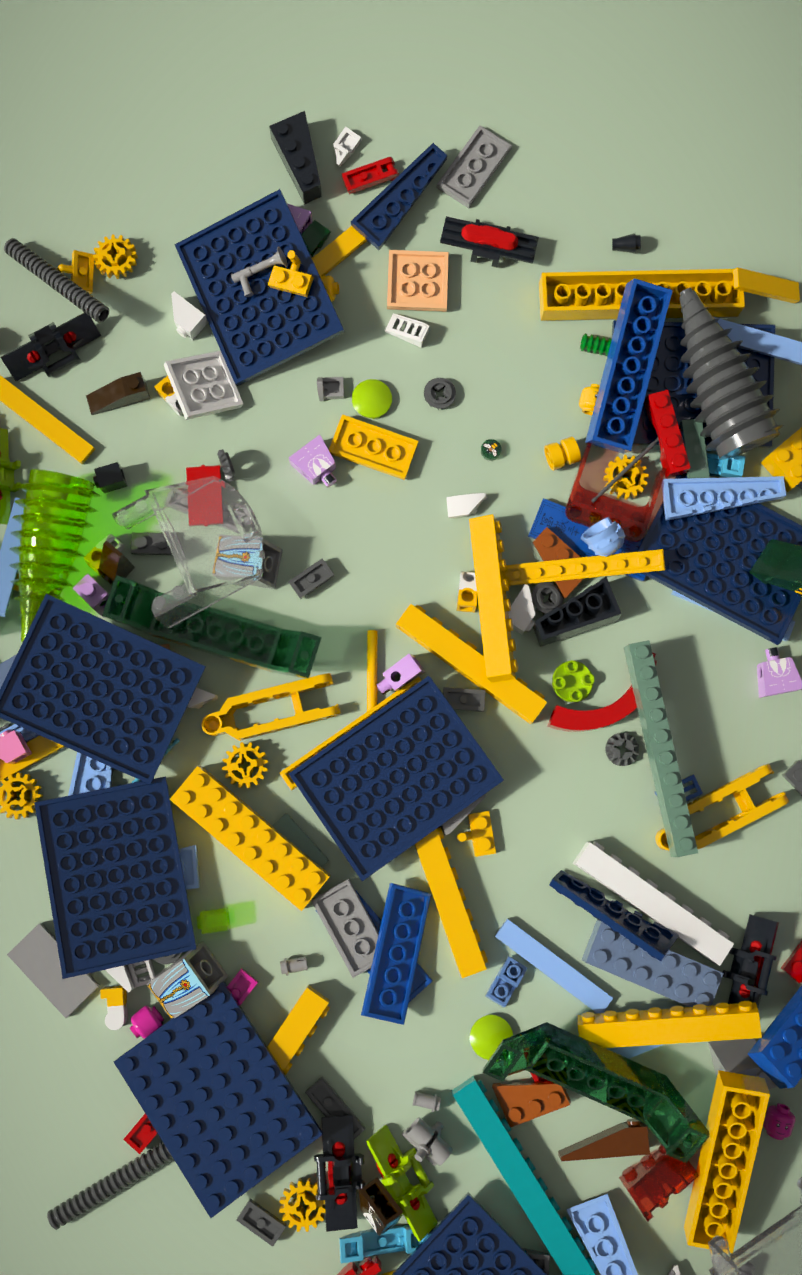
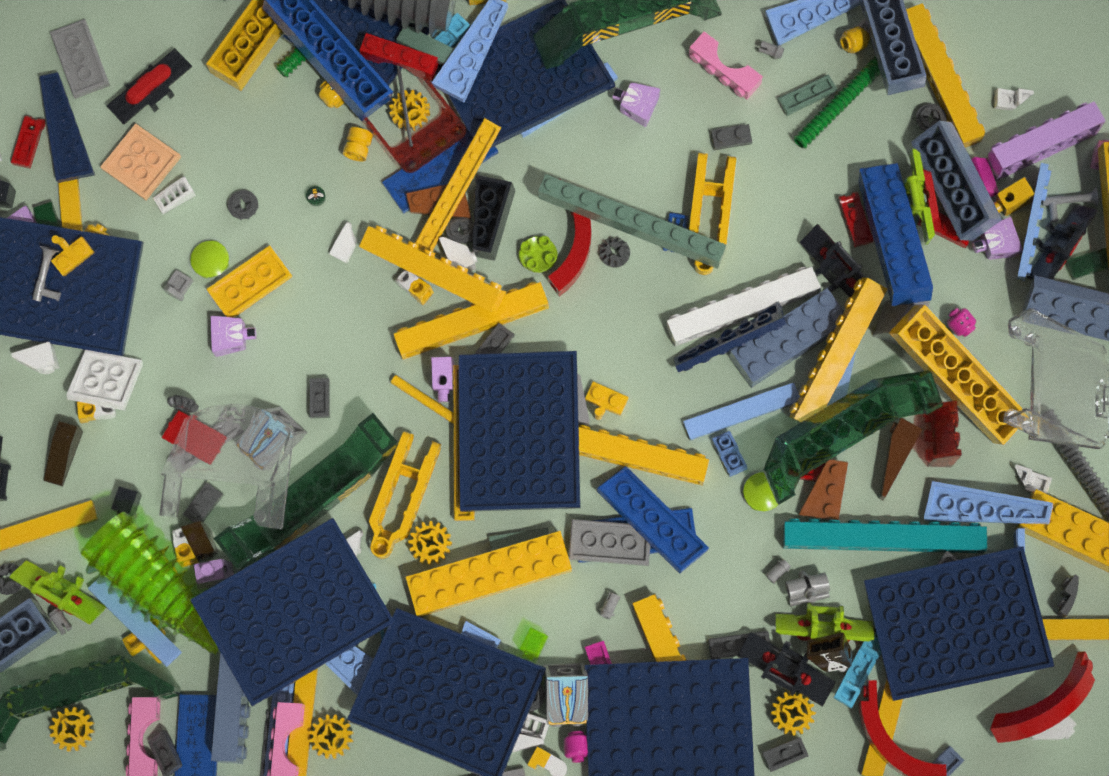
camera: 45 degrees left, 5 degrees down
(604, 537) = (445, 154): light blue helmet -> none

